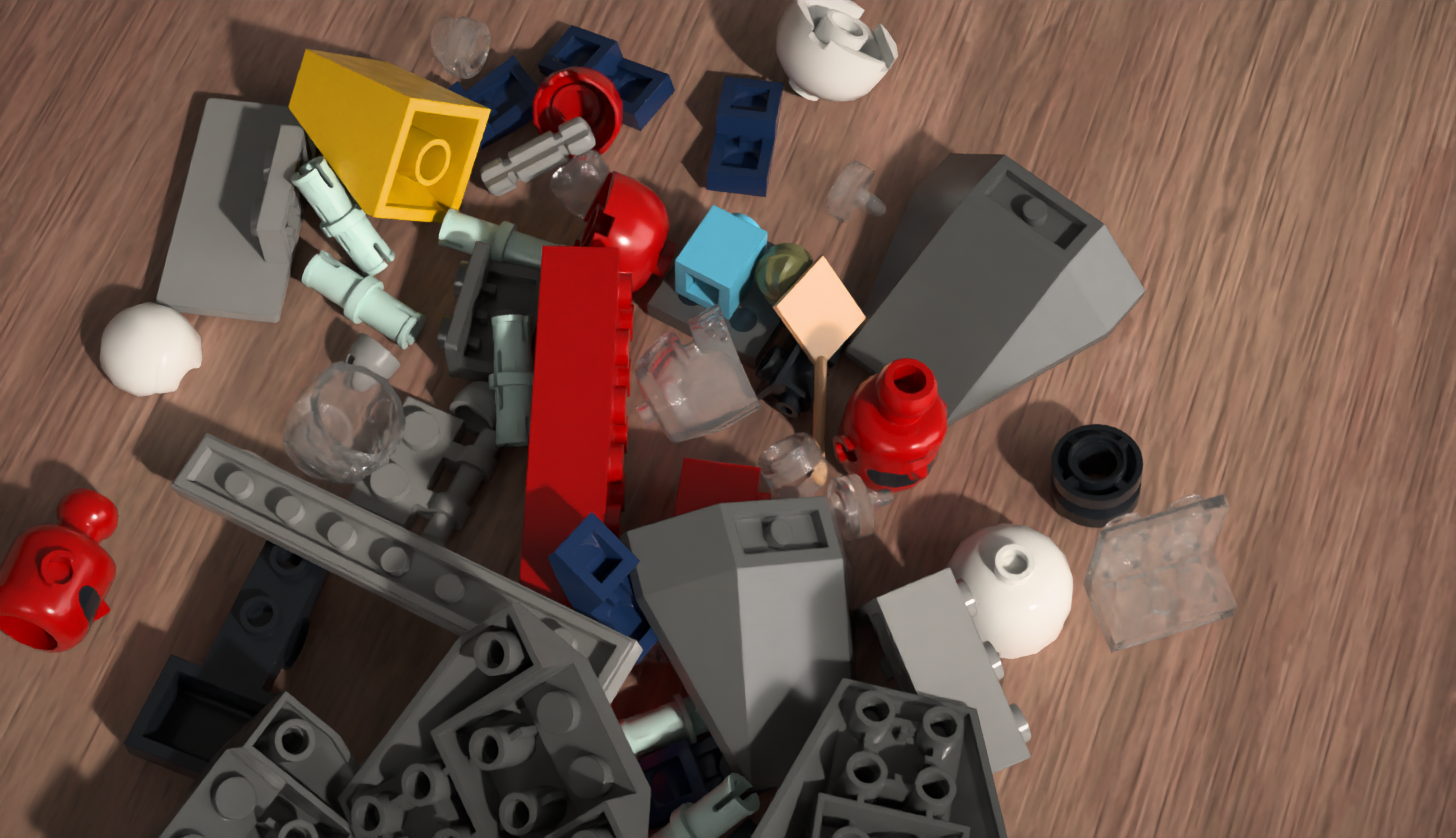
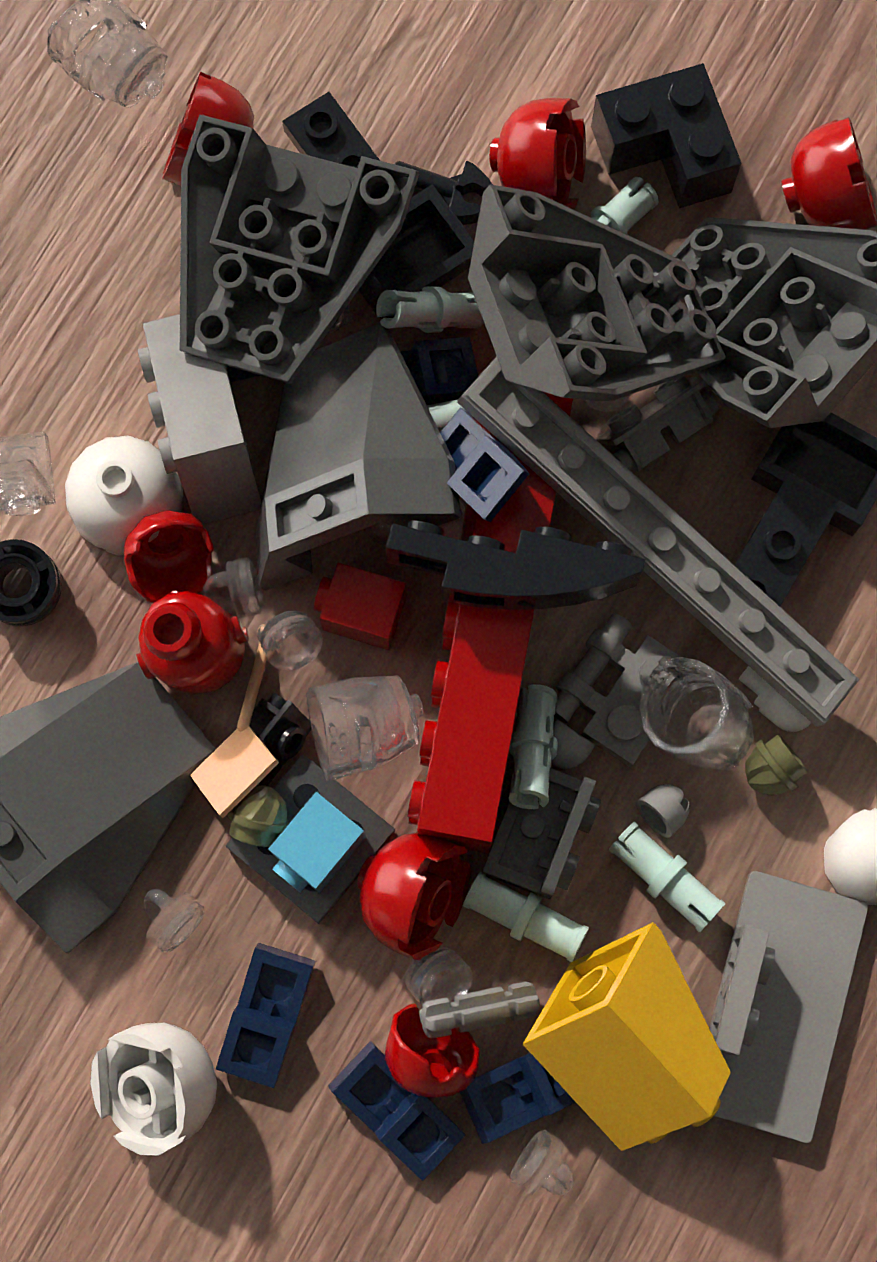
camera: 170 degrees left, 15 degrees up
(255, 414) = (773, 767): none -> olive plate
(342, 217) = (690, 953): light aqua pin -> none
(527, 475) = (540, 575): none -> black slope
(938, 518) = (173, 560): none -> red hair

